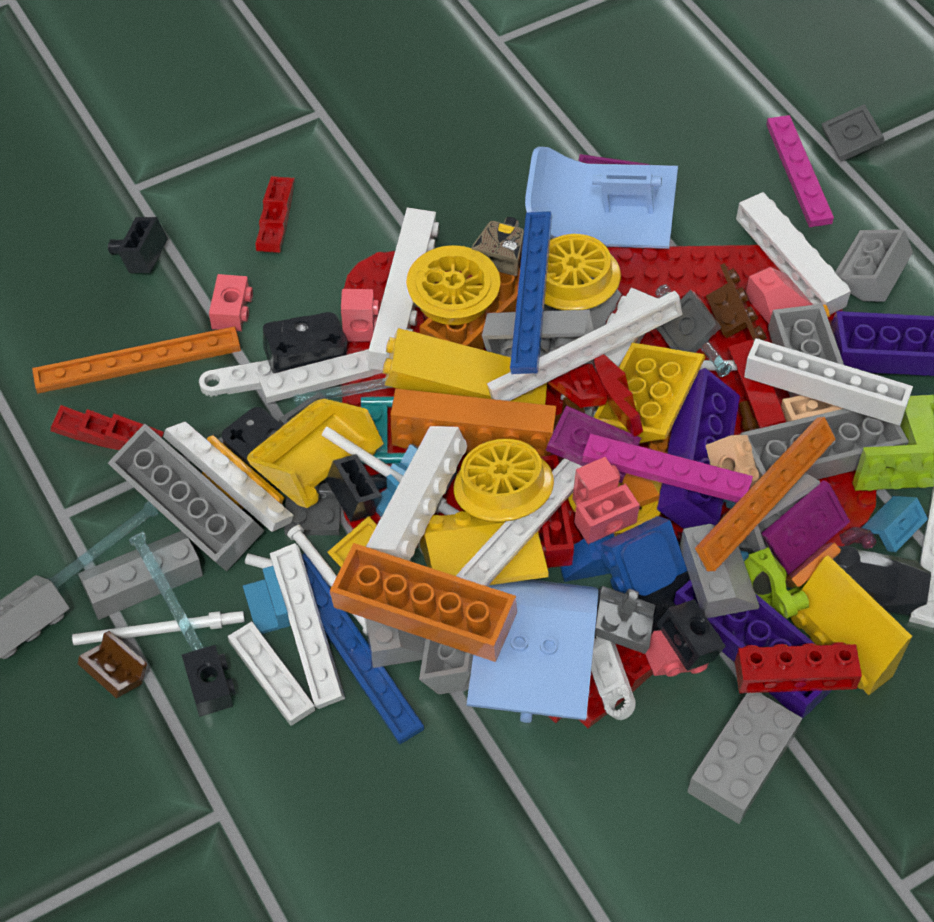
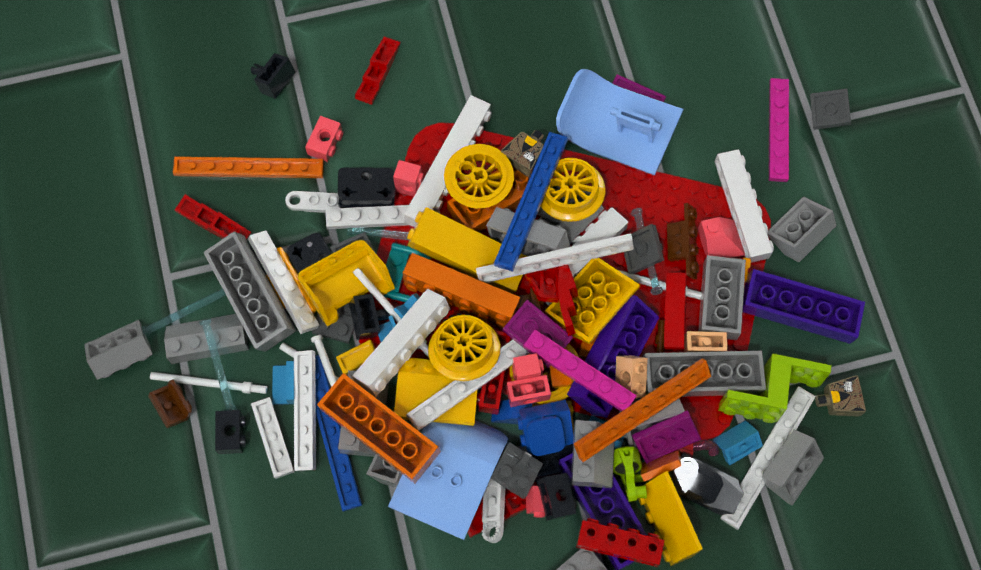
camera: 15 degrees right, 15 degrees up
(828, 381) = (721, 331): white brick -> none

